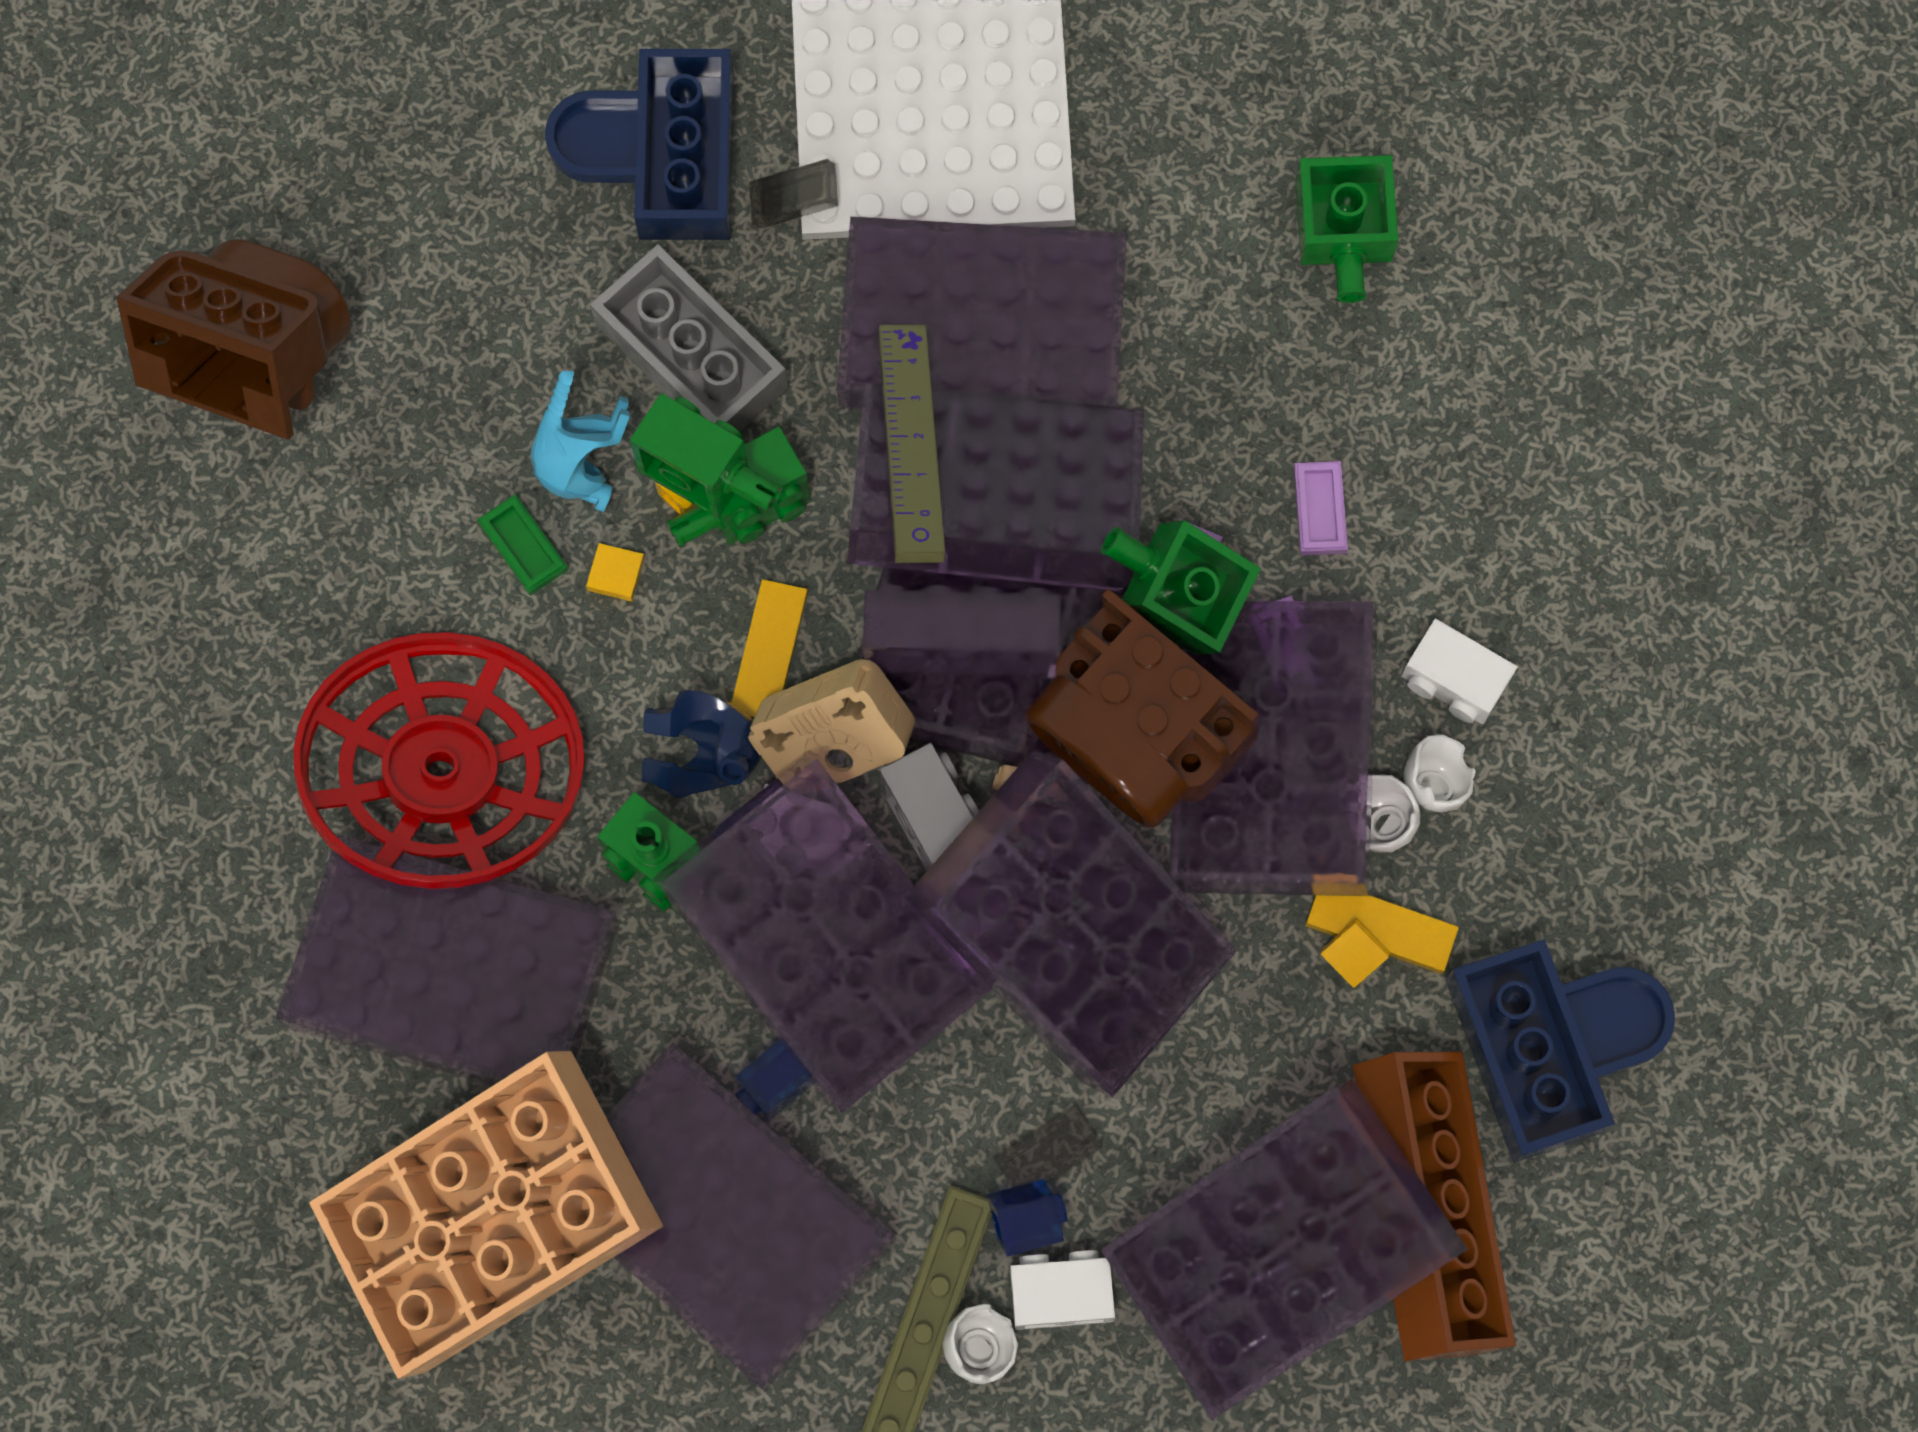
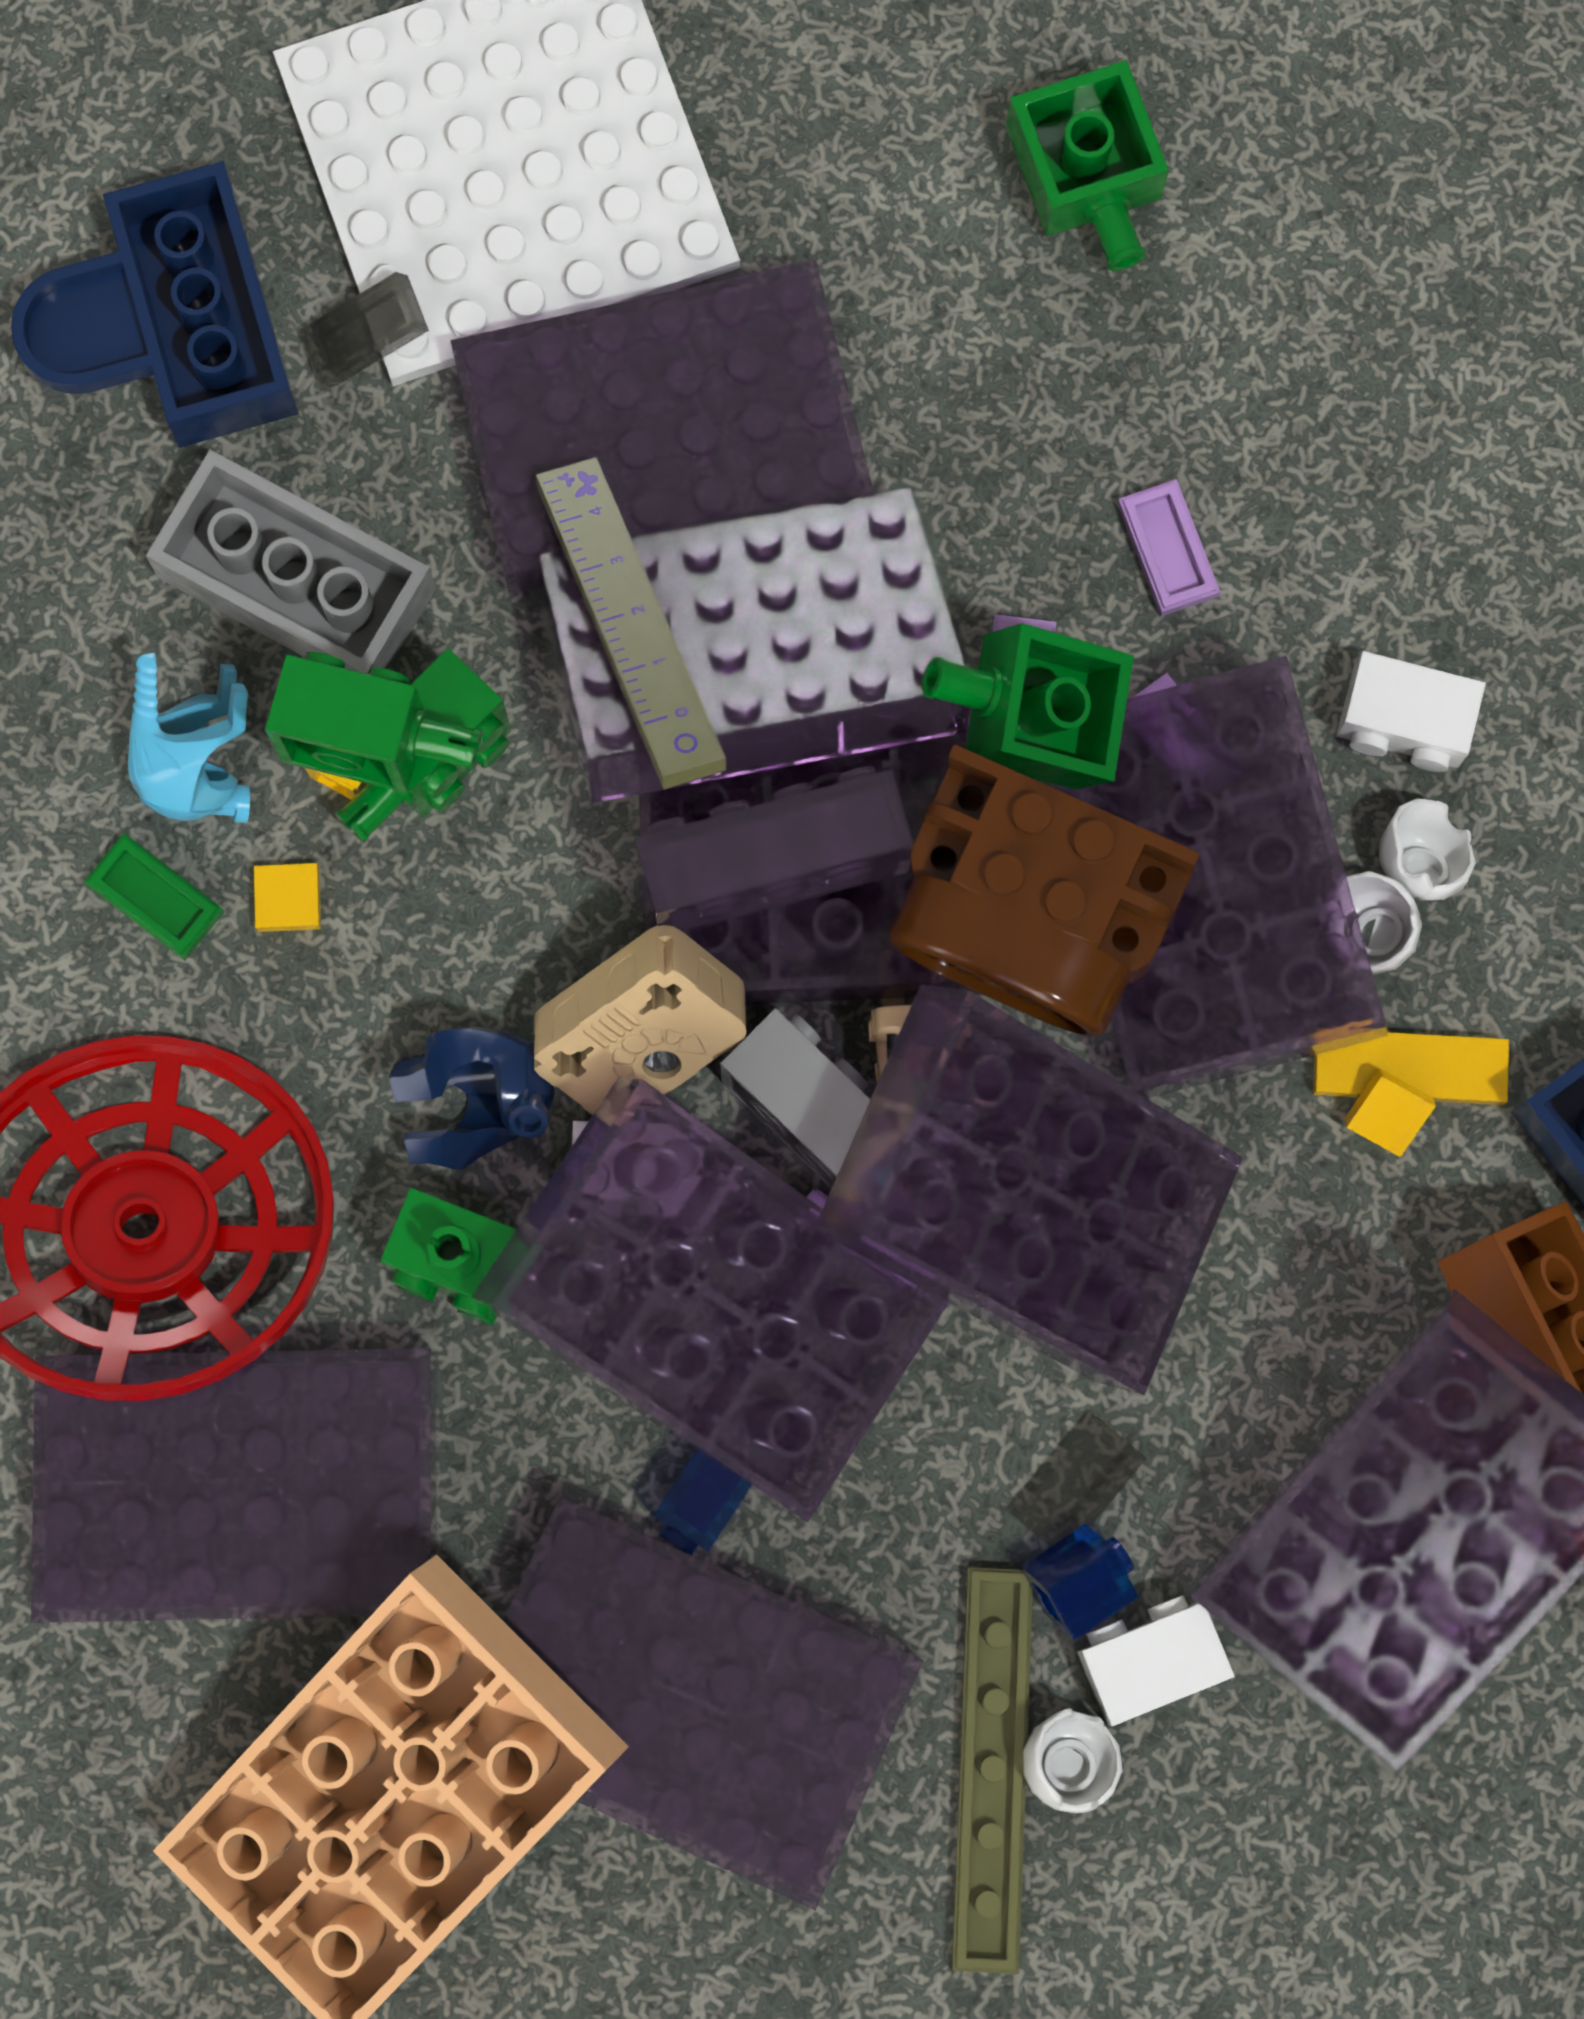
camera: 20 degrees left, 5 degrees up
(769, 644) = (518, 936): yellow tile -> none

